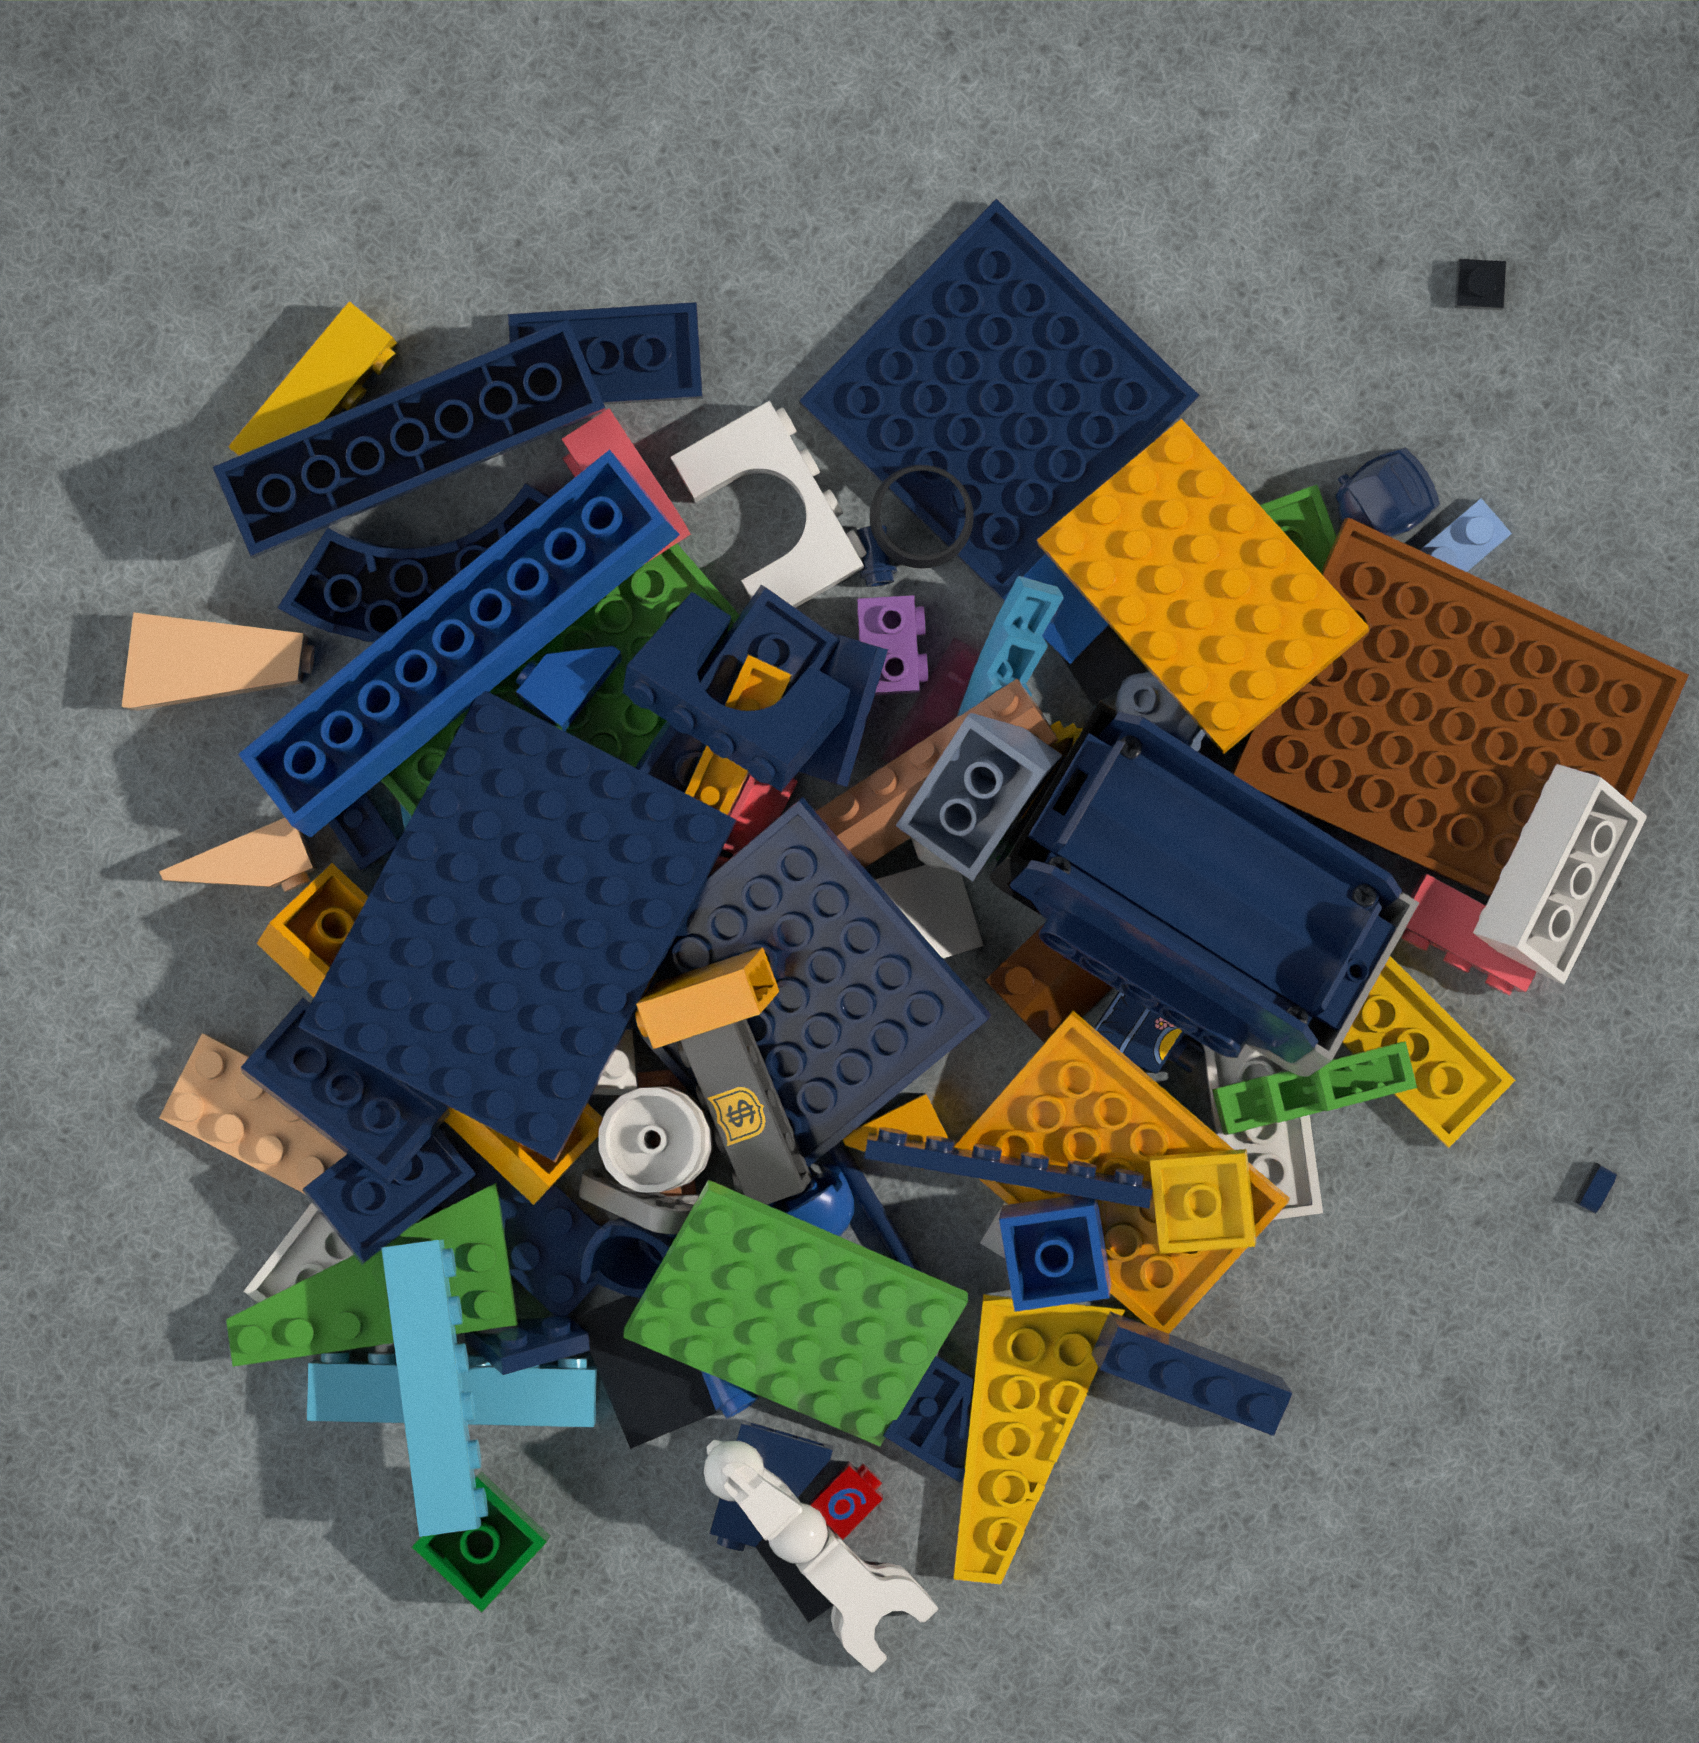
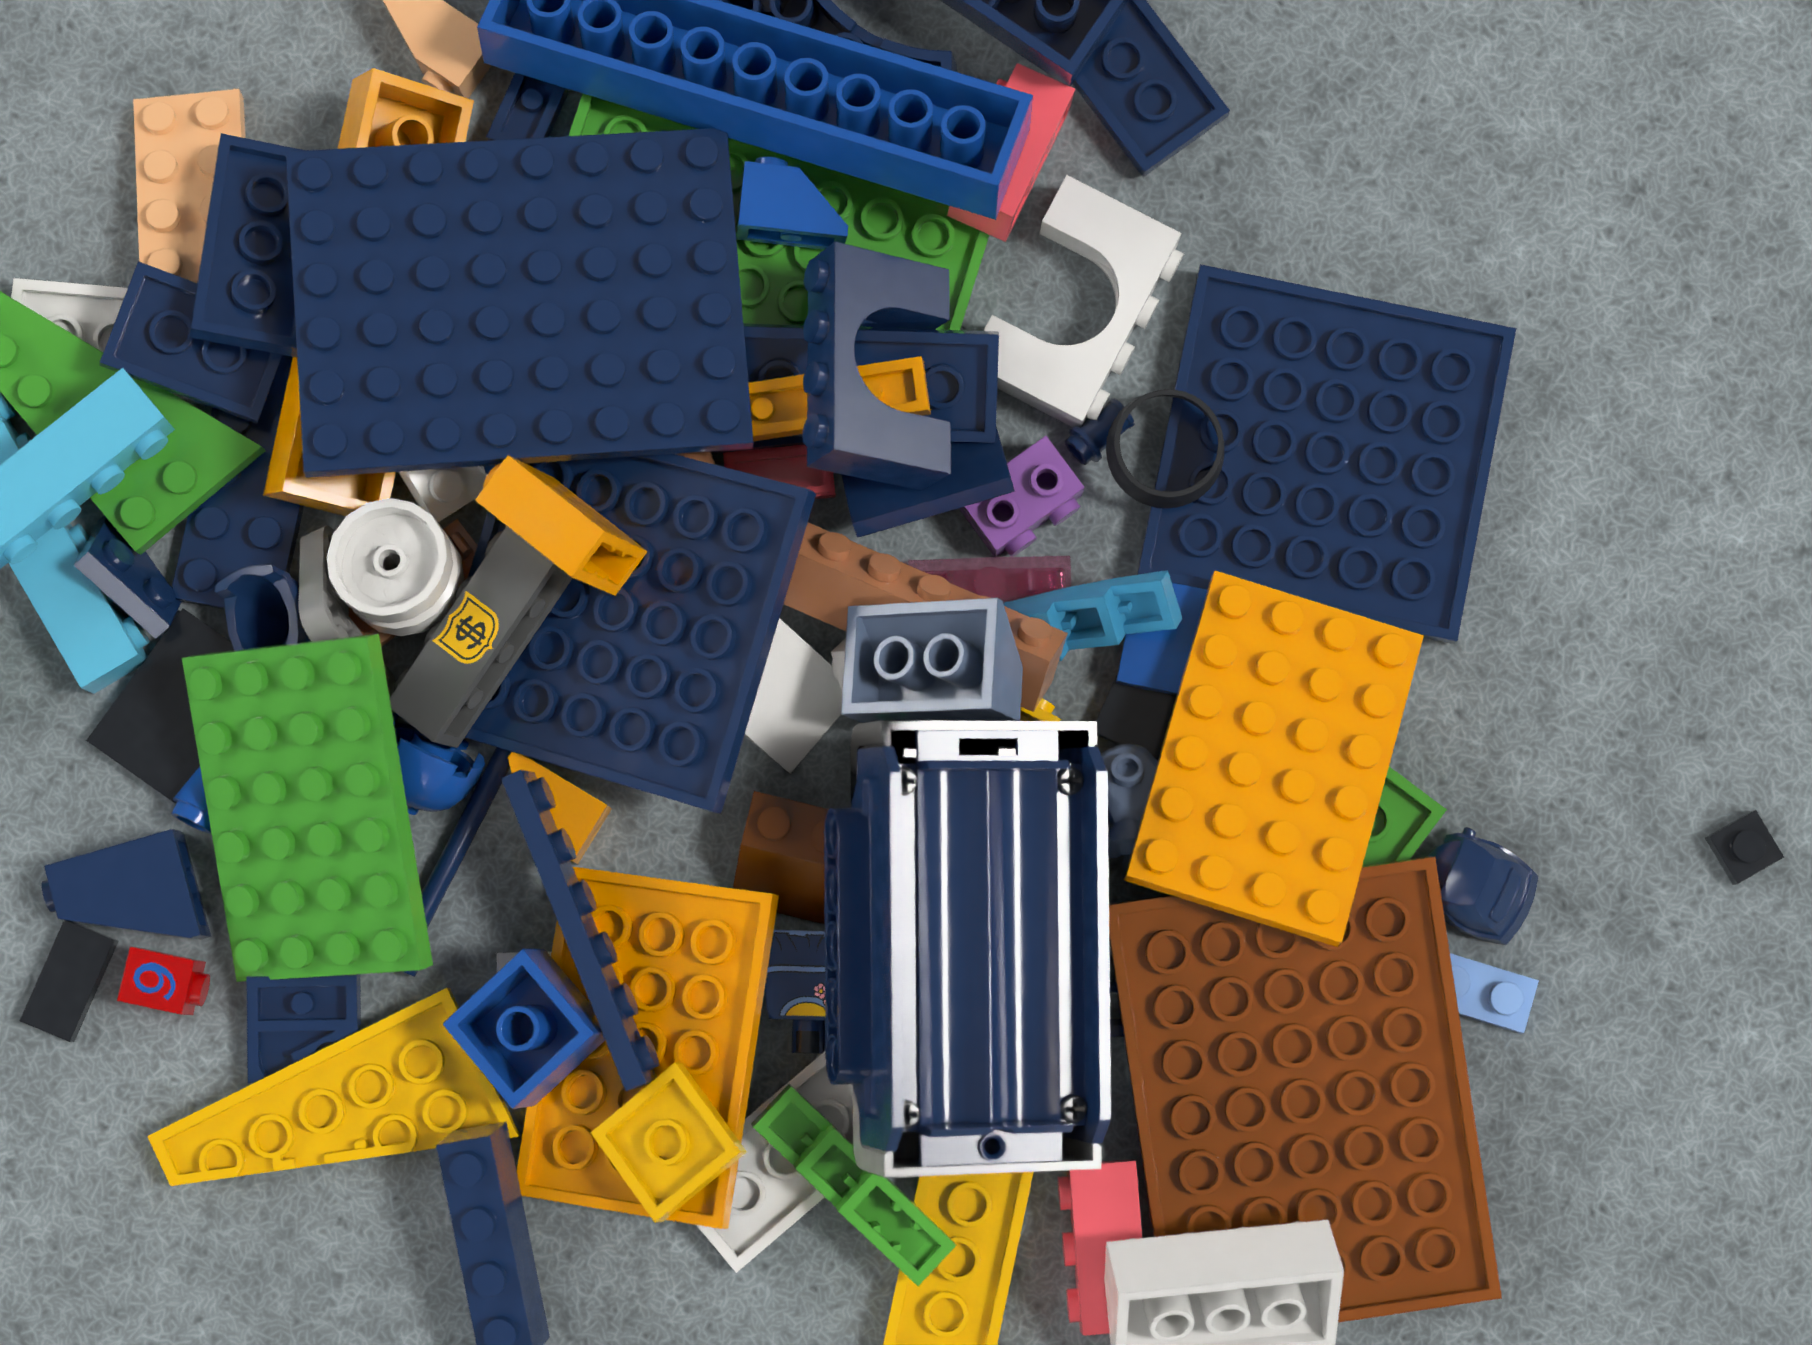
camera: 65 degrees right, 5 degrees down
(800, 1536) = (83, 1001): white piece -> none

